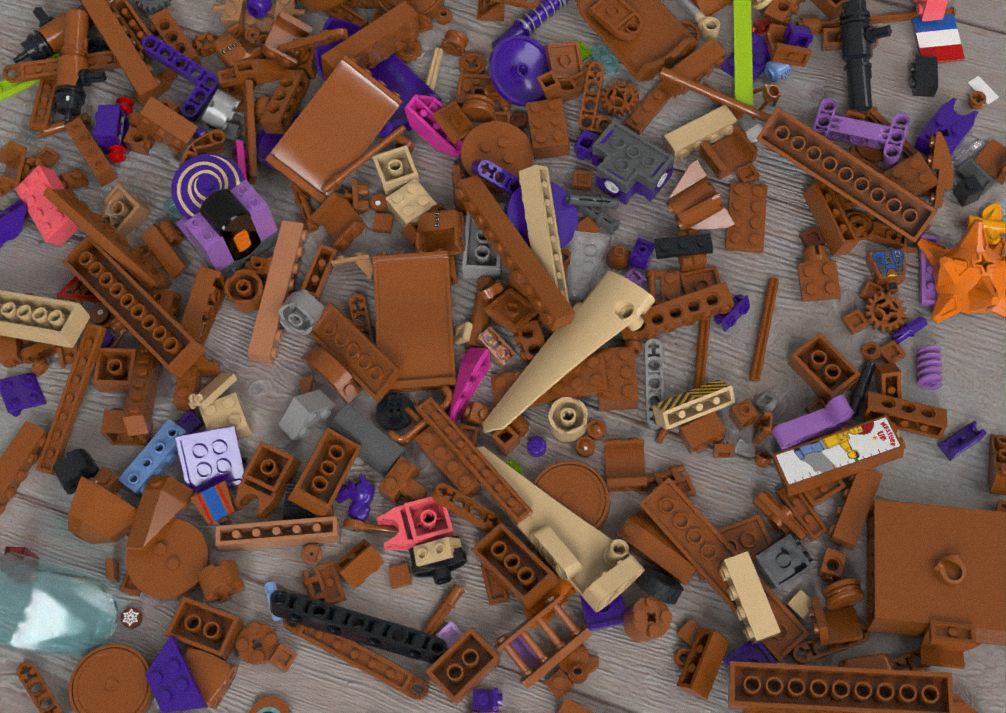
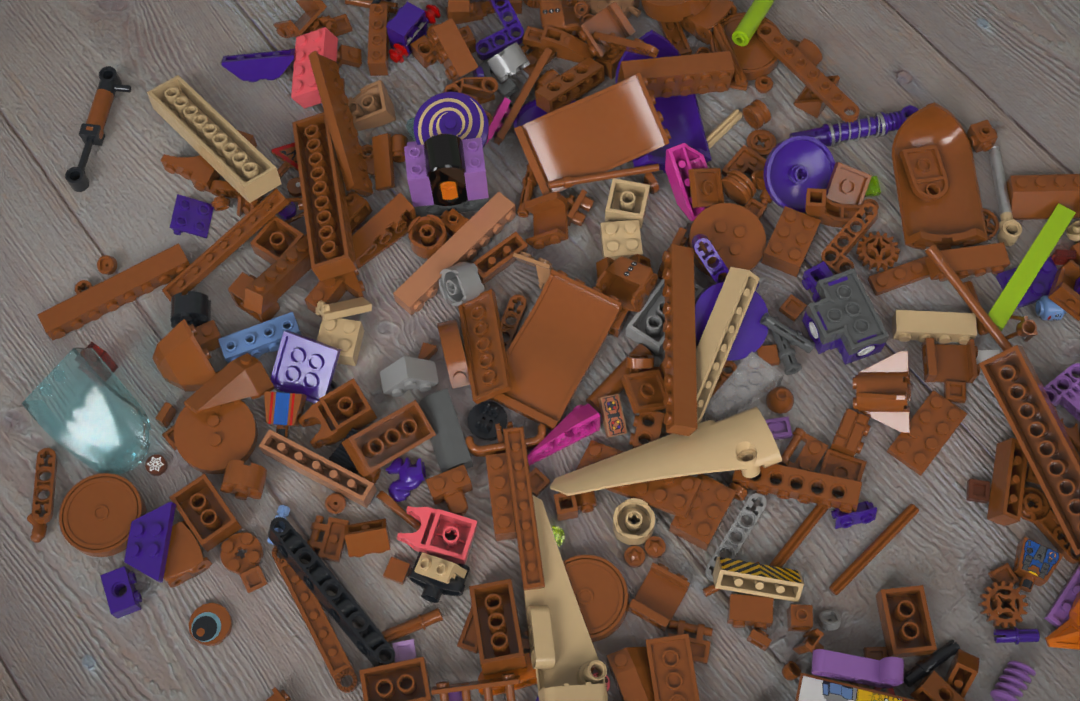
camera: 30 degrees right, 0 degrees up
(190, 422) = (310, 325): dark purple tile -> none
(378, 202) = (594, 222): dark orange tile -> none
(383, 223) = (586, 244): dark orange tile -> none
(415, 52) = (717, 103): dark orange gear -> none
(462, 333) = (591, 385): tan tile -> none
(468, 505) = (493, 545): dark orange beam -> none
(475, 413) = (555, 465): dark orange bracket -> none
(519, 120) = (769, 219): copper tile -> none
(536, 446) = (590, 529): dark purple piece -> none
(606, 60) = (888, 208): clear light blue plate -> none
(641, 254) = (802, 409): dark purple brick -> none
(683, 246) = (845, 425): black plate -> none
(818, 276) = (960, 530): dark orange plate -> none
(855, 322) = (967, 596): dark orange plate -> none
(871, 346) = (964, 627): dark orange plate -> none
(892, 352) = (984, 647): dark orange tile -> none

